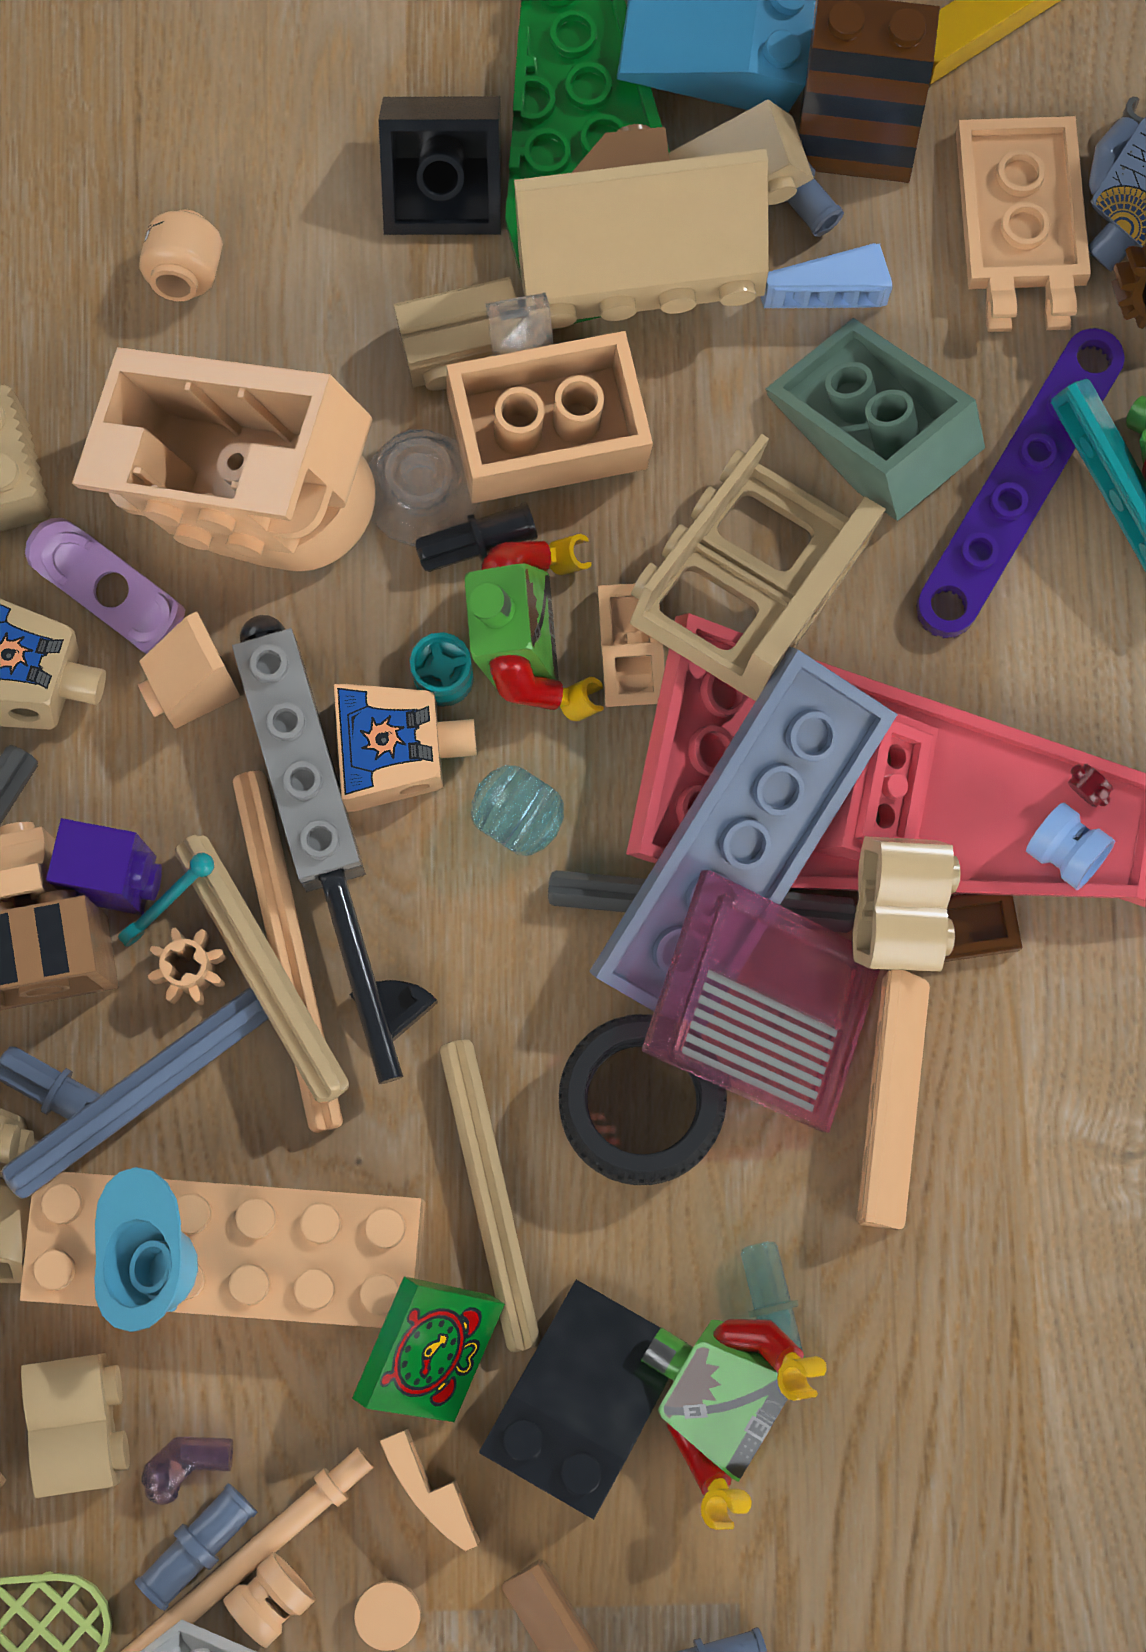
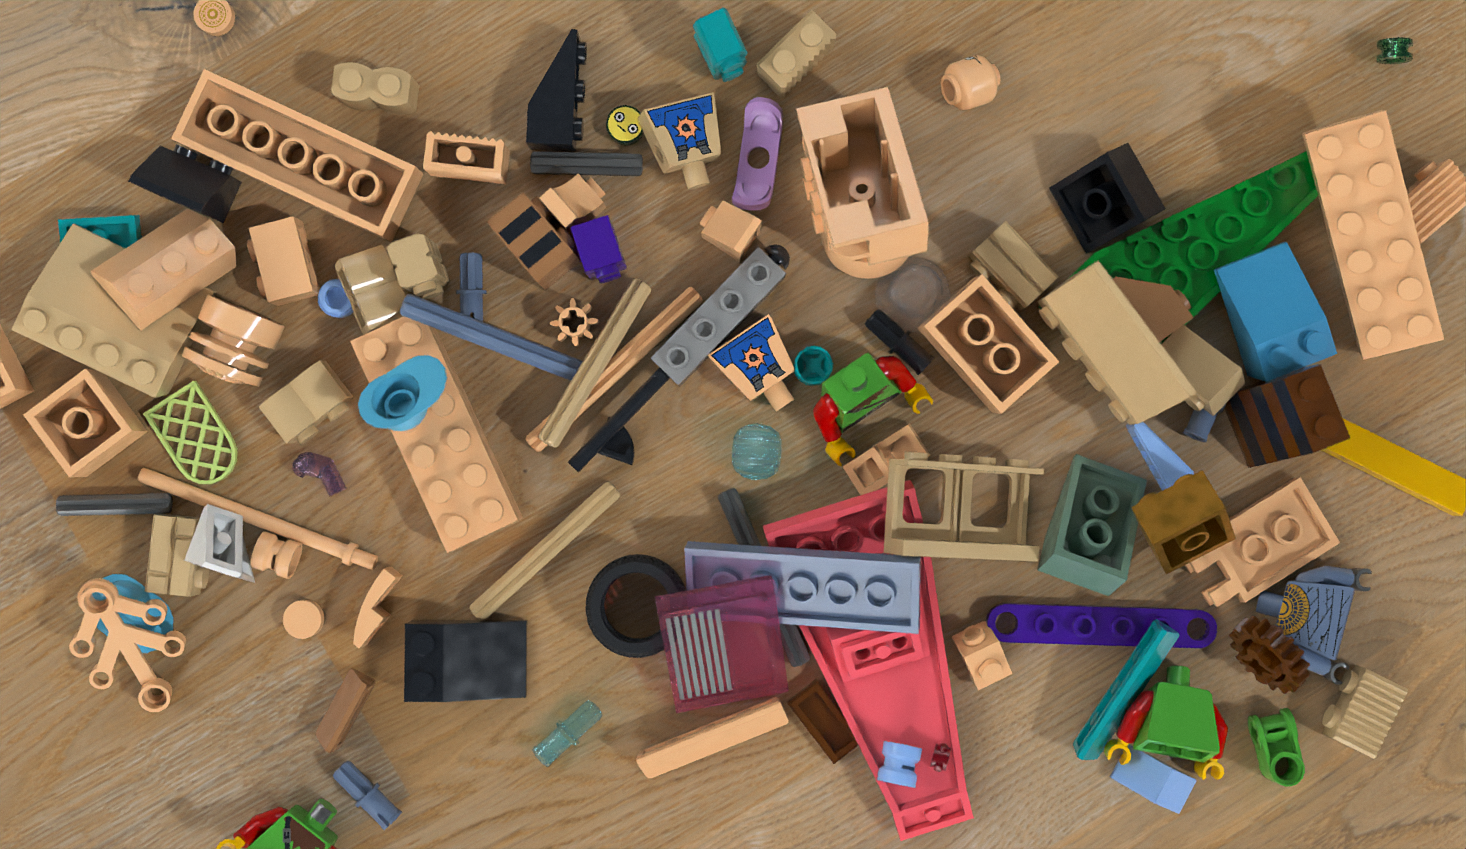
camera: 60 degrees right, 10 degrees up
(195, 1547) = (282, 502): sand blue pin -> none
(200, 866) = (631, 299): teal hinge -> none
(428, 1350) = (442, 567): green tile -> none
(519, 324) = (1028, 301): clear tile -> none
(727, 1401) = (503, 737): torso -> none
(904, 904) = (817, 691): tan brick -> none
(936, 286) = (1184, 521): none -> pearl gold brick
(976, 658) = (982, 654): none -> light nougat bracket

